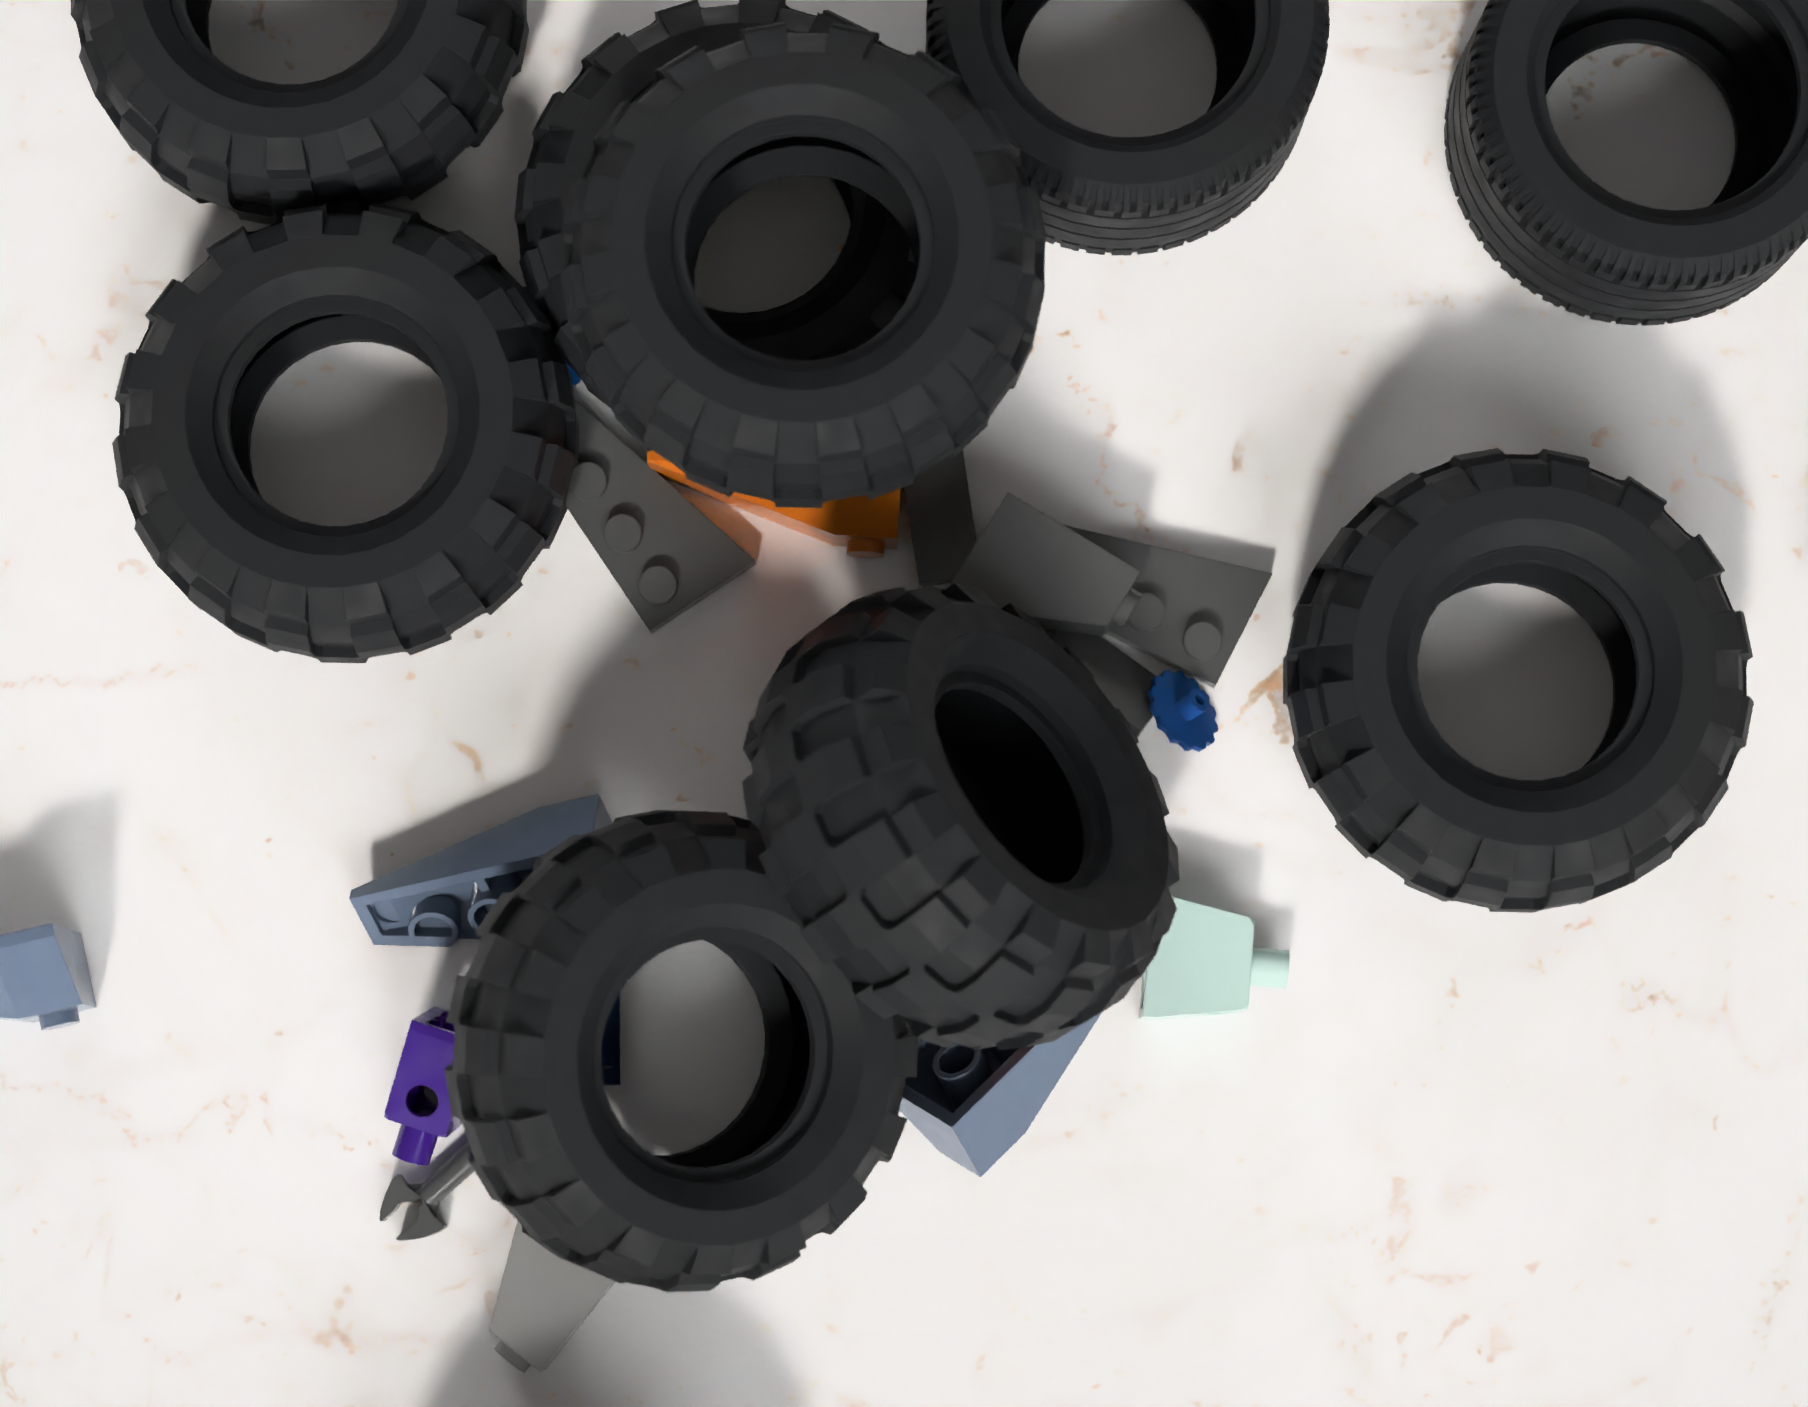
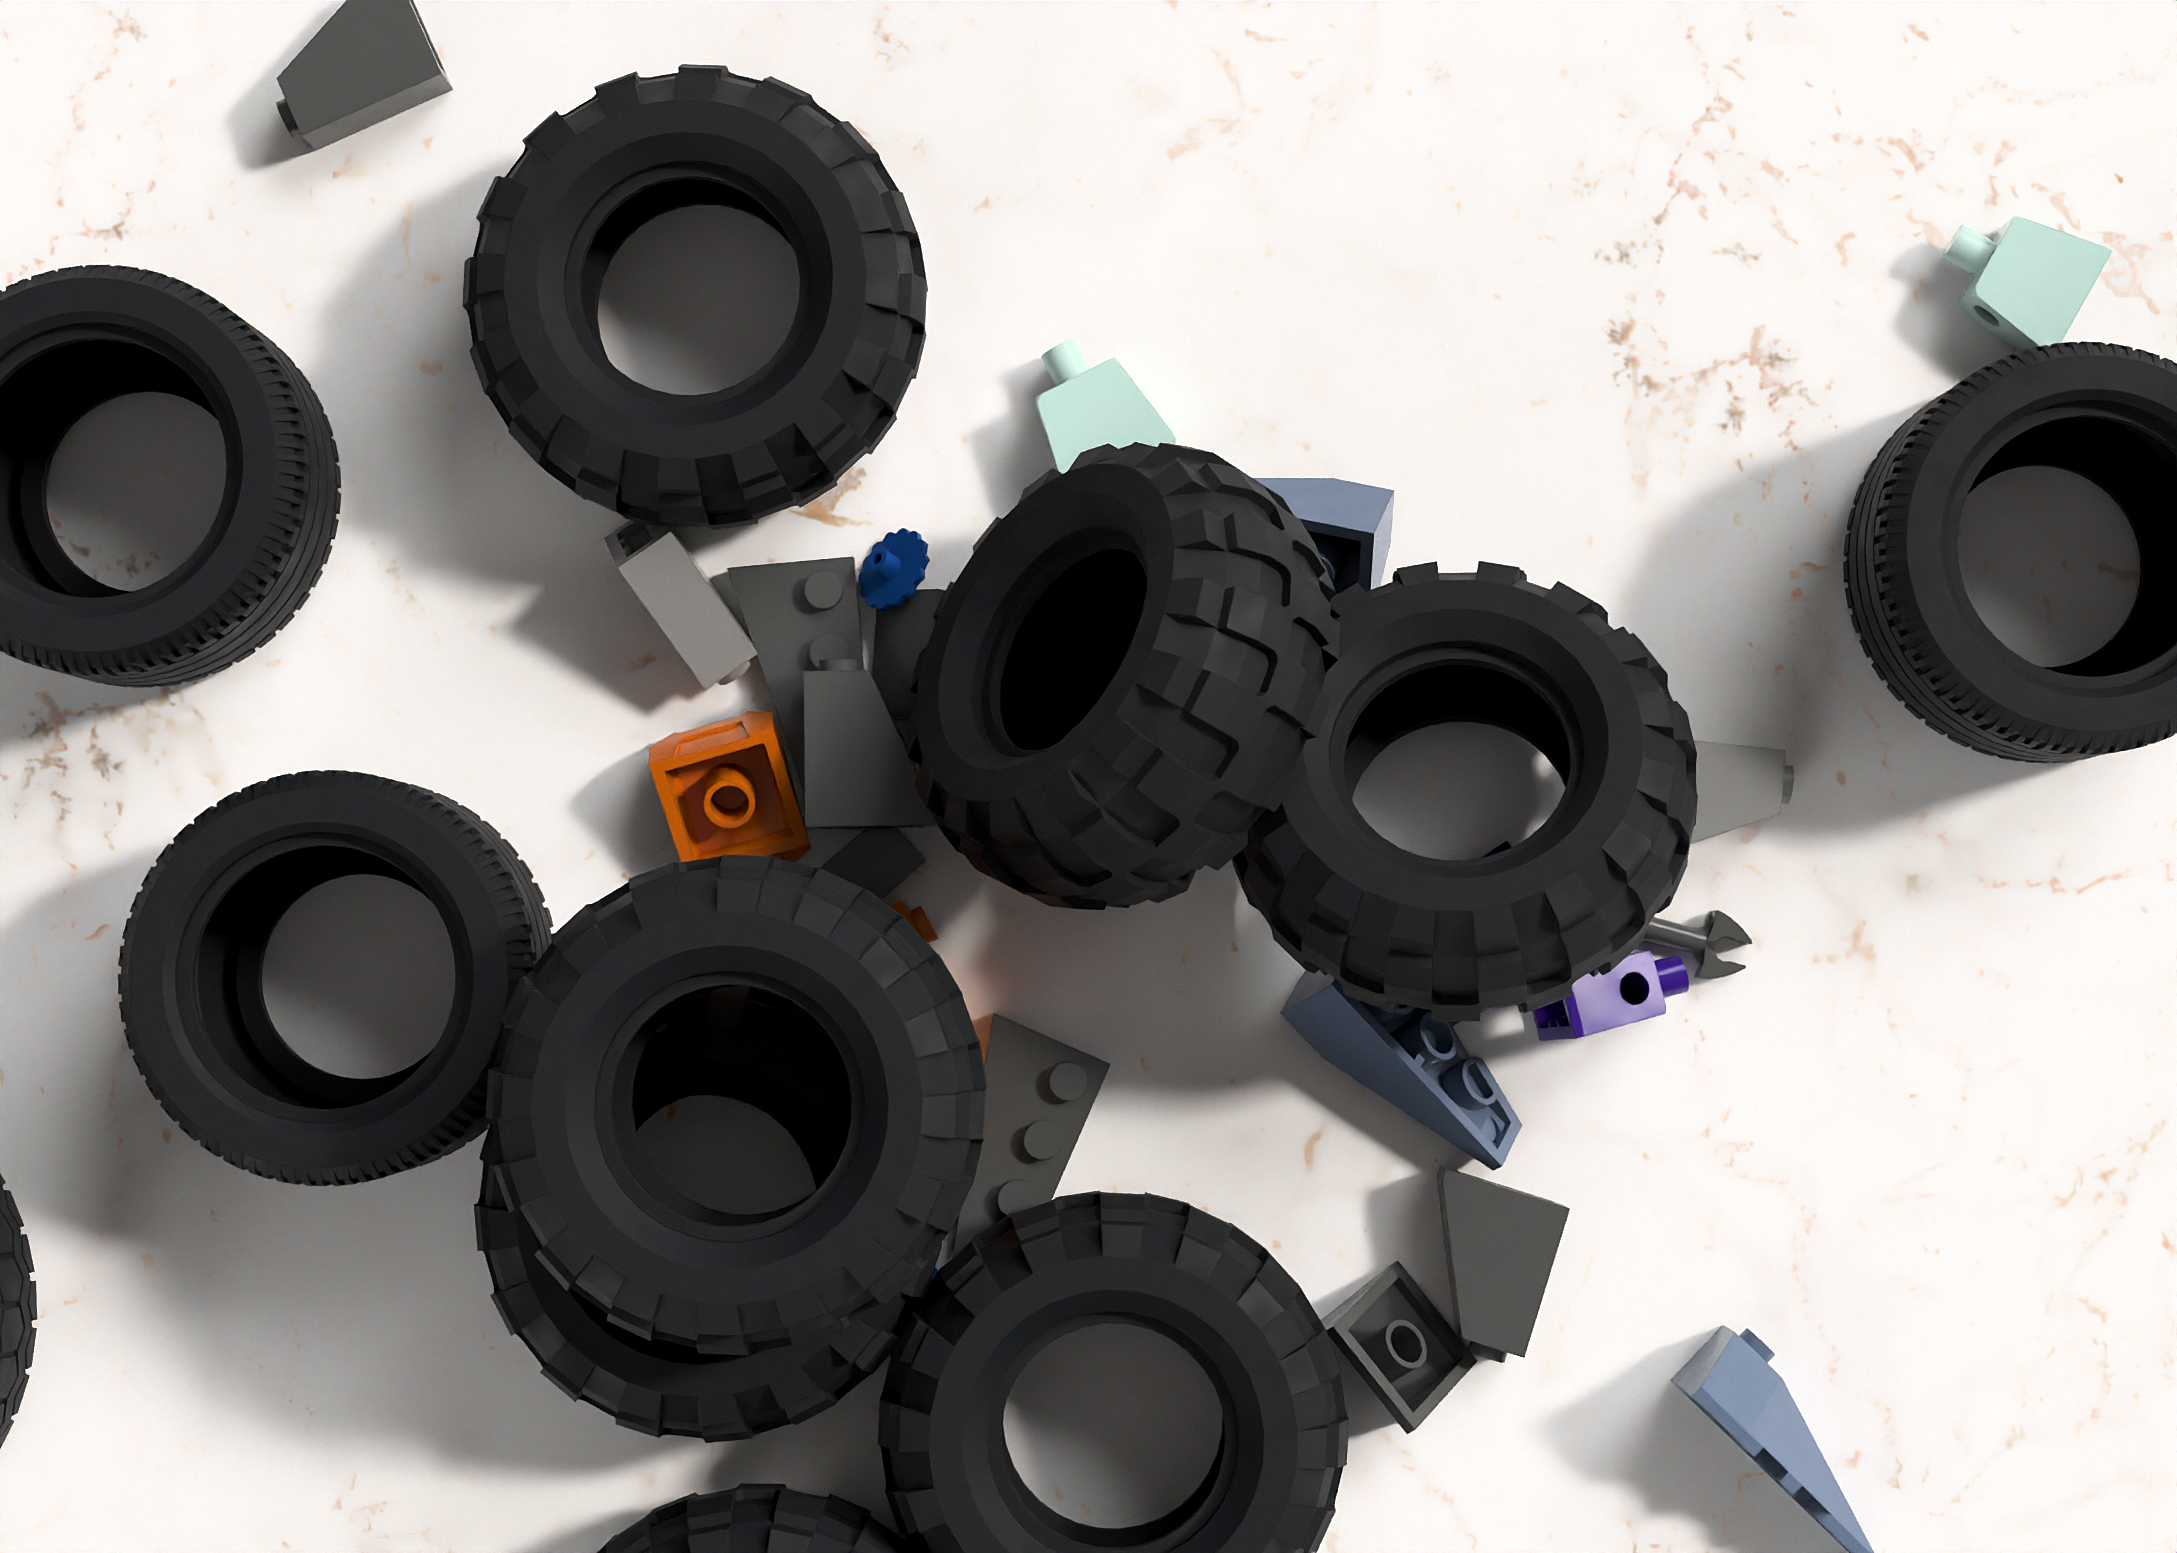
camera: 115 degrees left, 5 degrees up
(258, 718) = (1399, 1345): none -> dark grey slope
(276, 849) = (1497, 1259): none -> dark grey slope
(1076, 452) = (729, 790): none -> orange slope
(1265, 515) = (682, 601): none -> light grey slope

